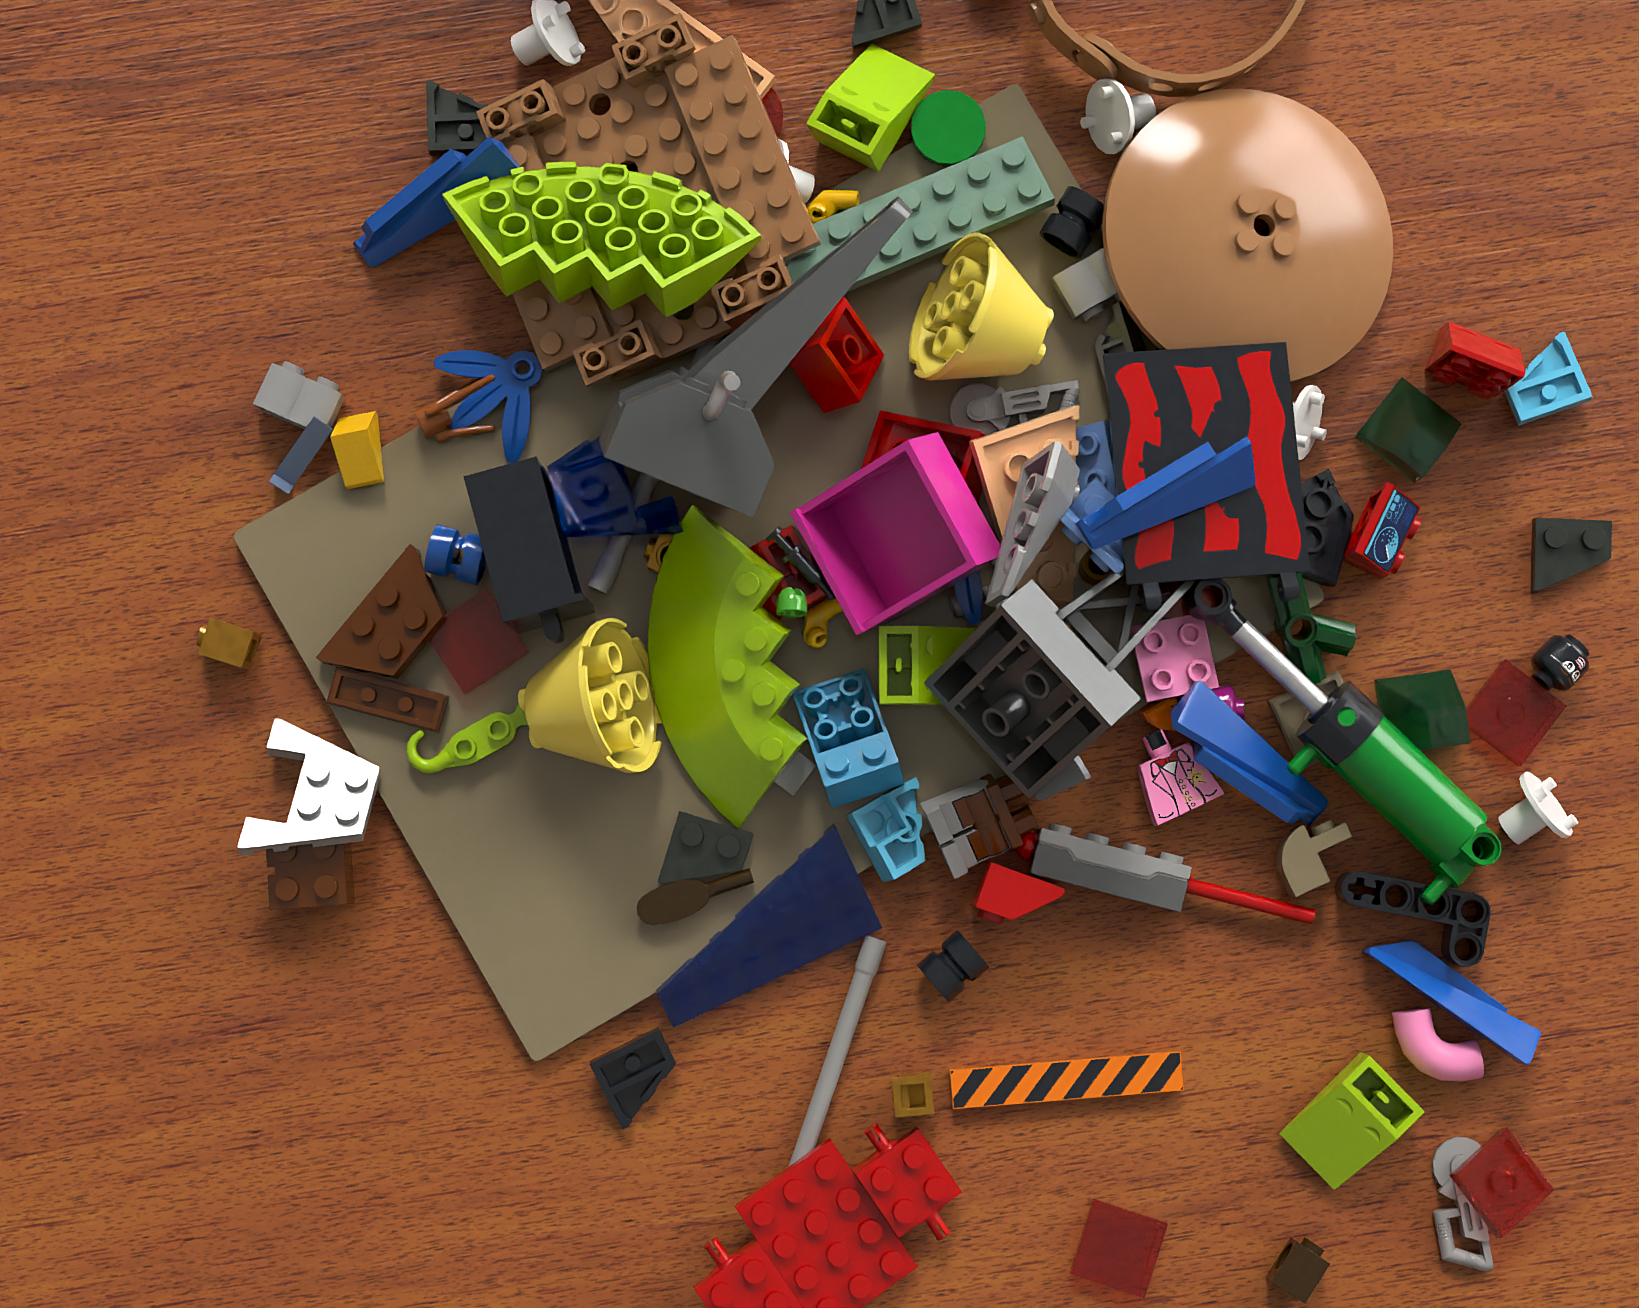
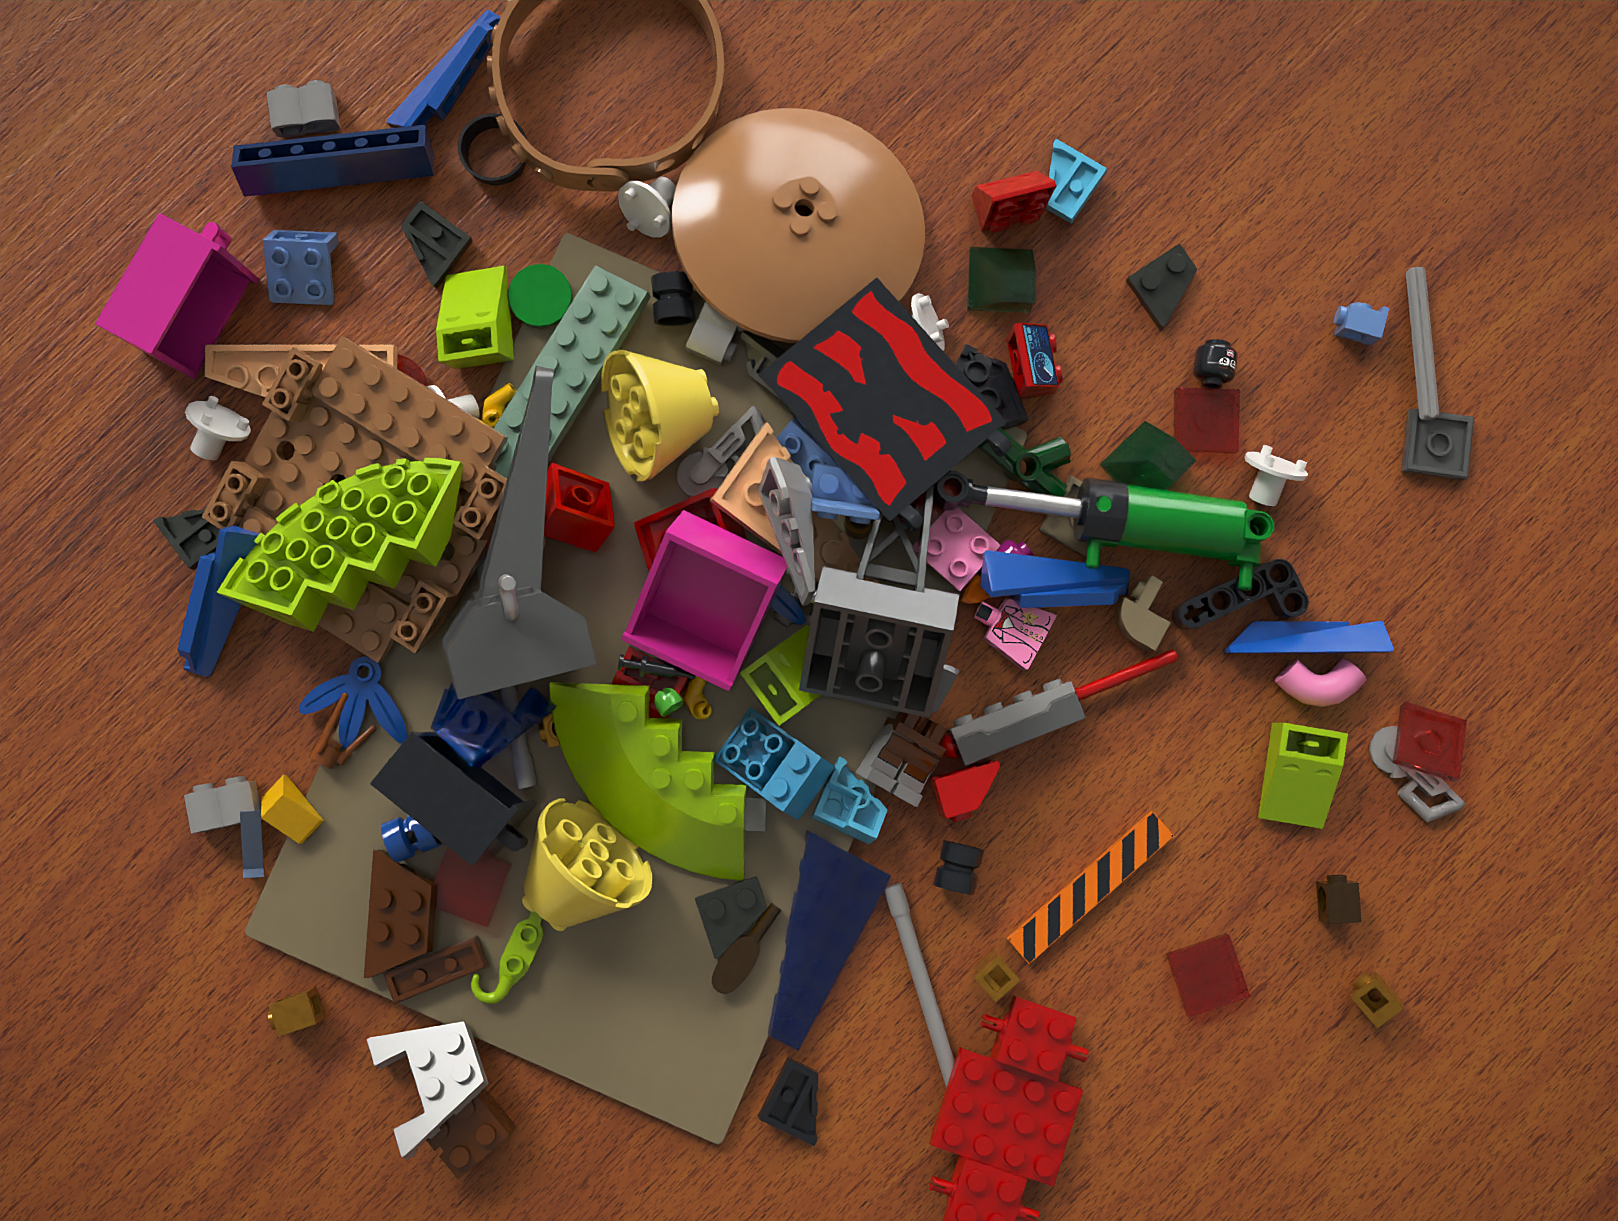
camera: 45 degrees left, 0 degrees up
(1171, 492) = (874, 436): blue wedge -> none

